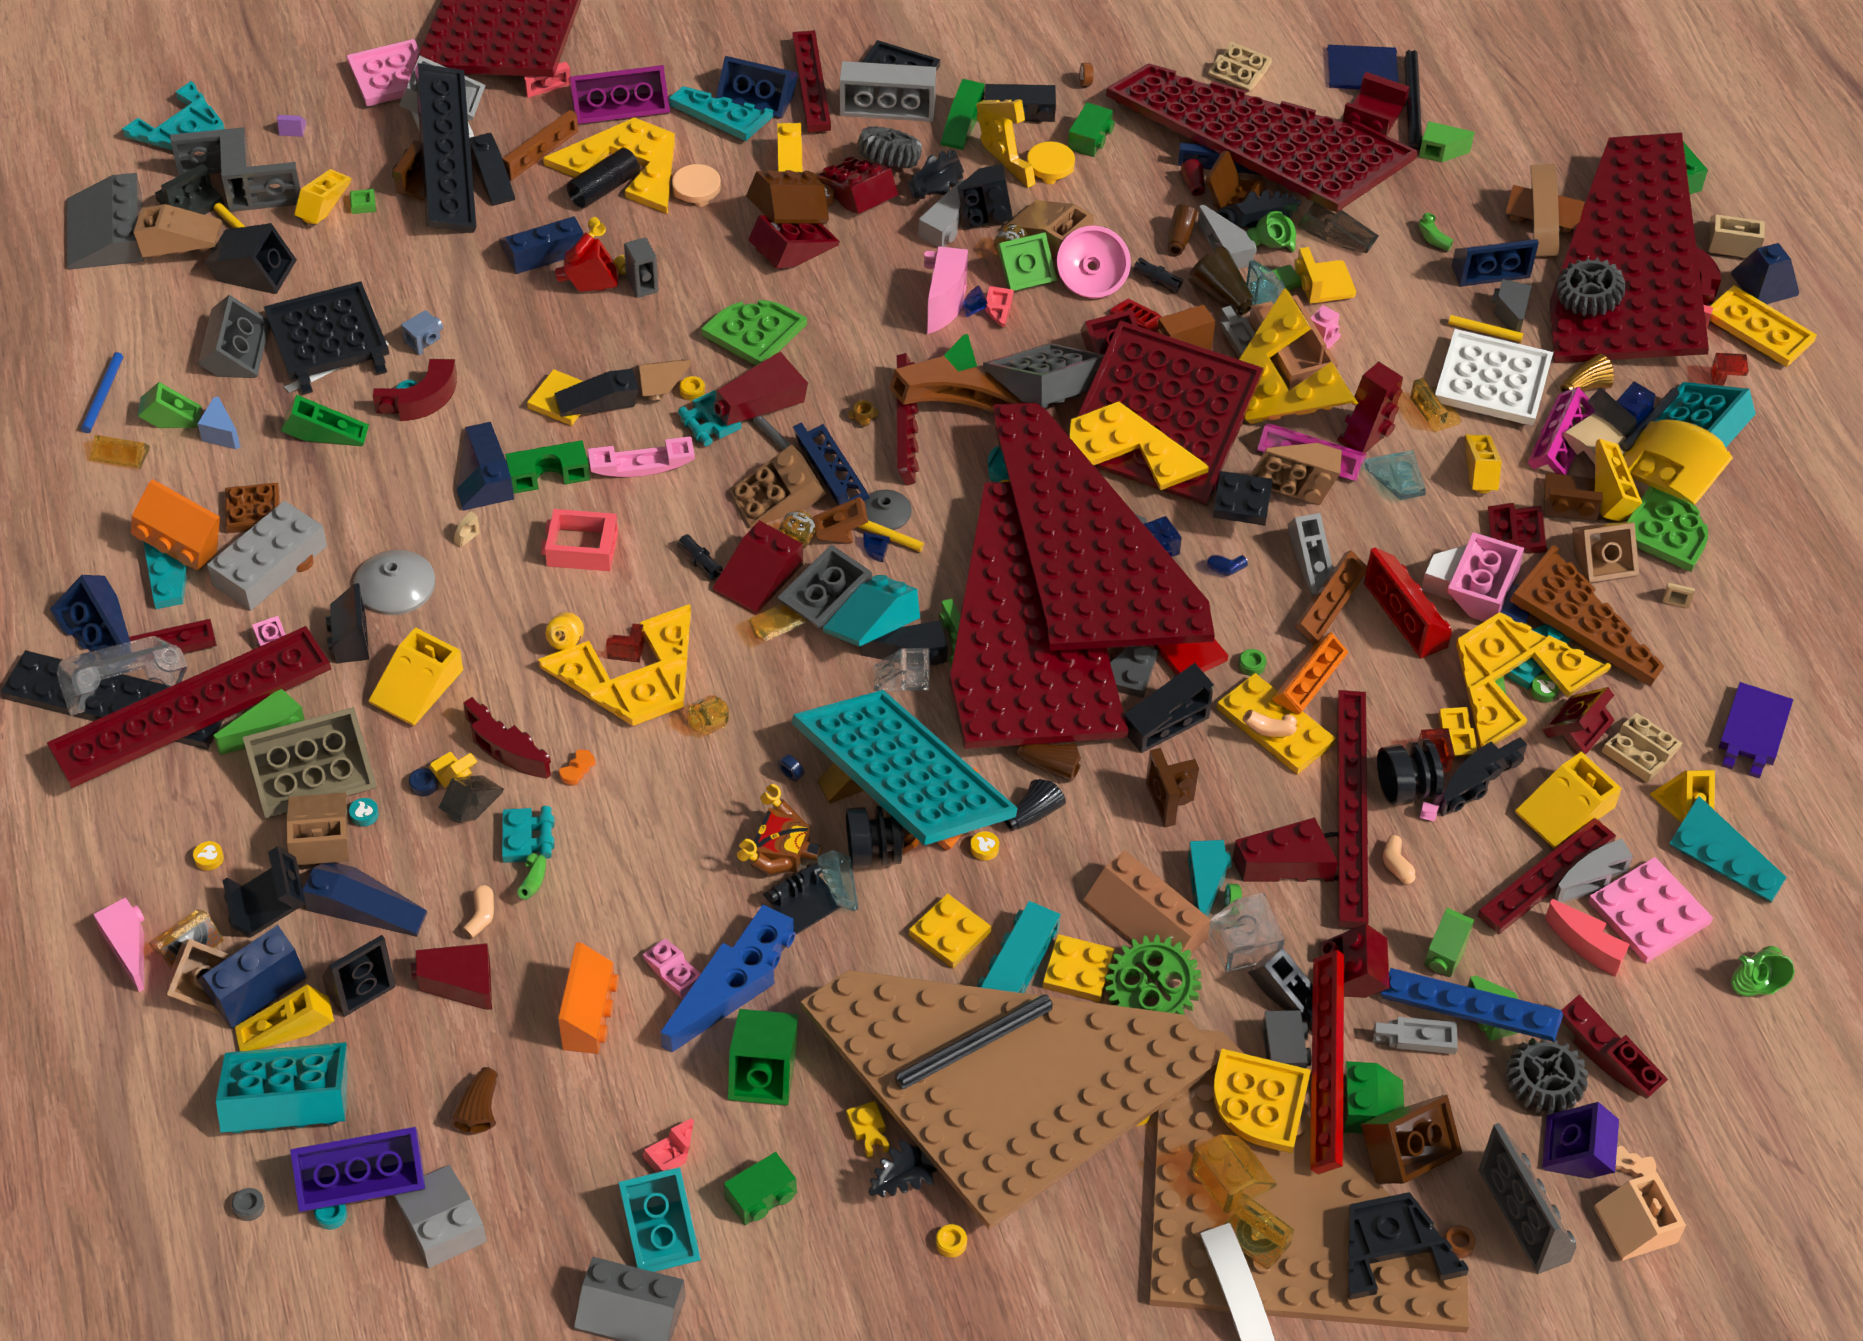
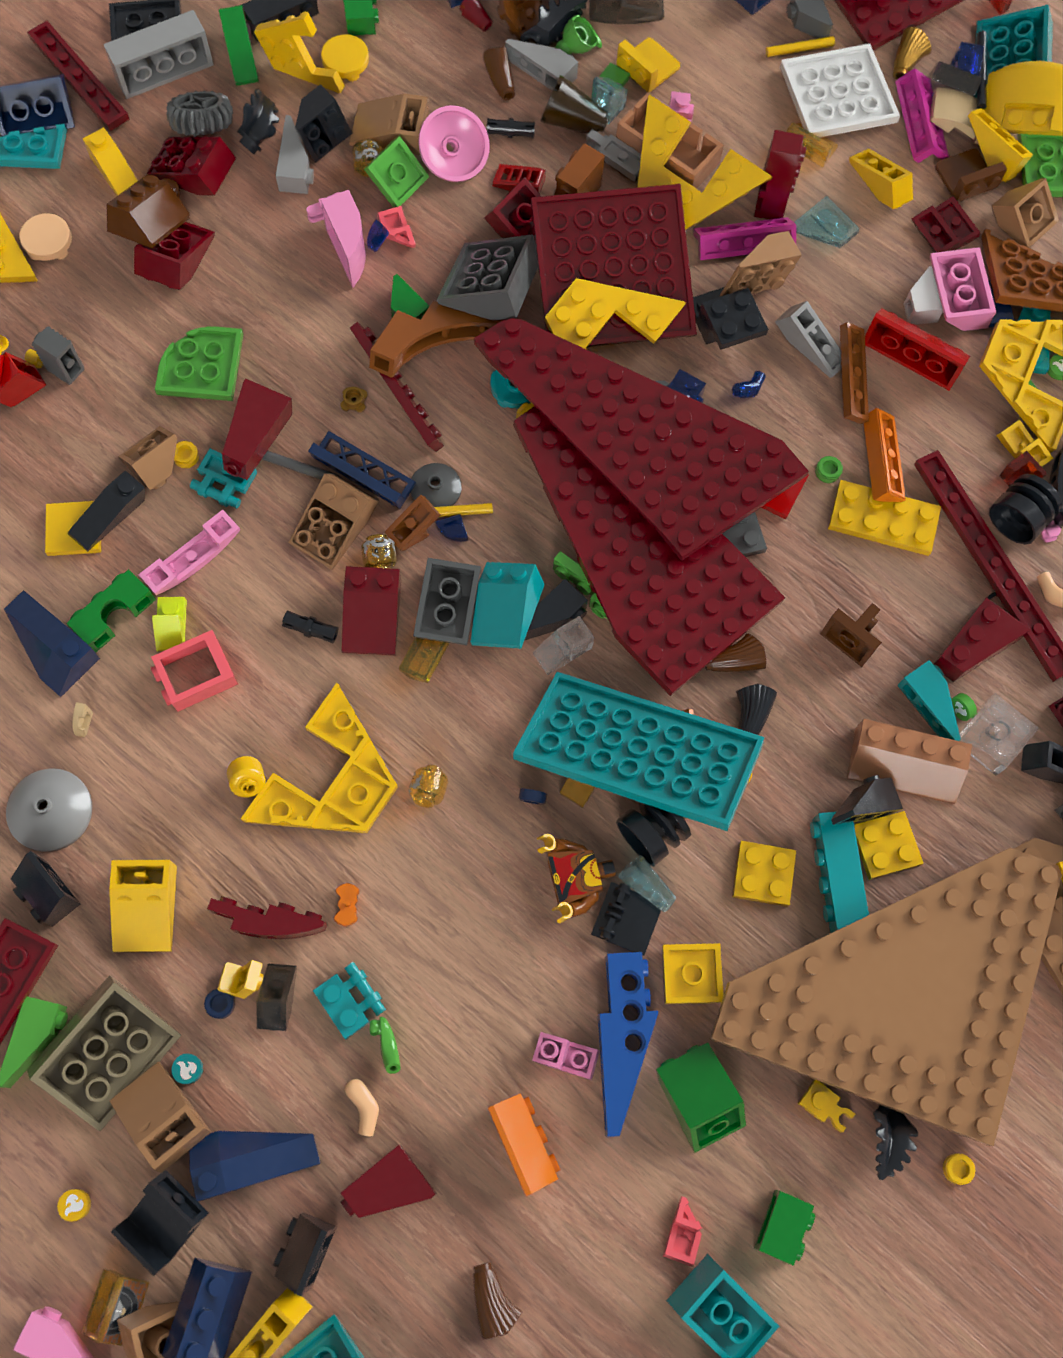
camera: 35 degrees left, 20 degrees up
(589, 495) = (169, 622): none -> neon yellow slope
(627, 647) = (306, 755): clear red panel -> none
(824, 960) = (692, 973): none -> yellow plate
(973, 1041) = (878, 989): black axle -> none
(1081, 915) = (869, 801): none -> black slope
(1170, 709) = (804, 555): black wedge -> none
(1174, 966) = (967, 803): bright green gear -> none
(1270, 727) = (894, 528): light nougat arm -> none

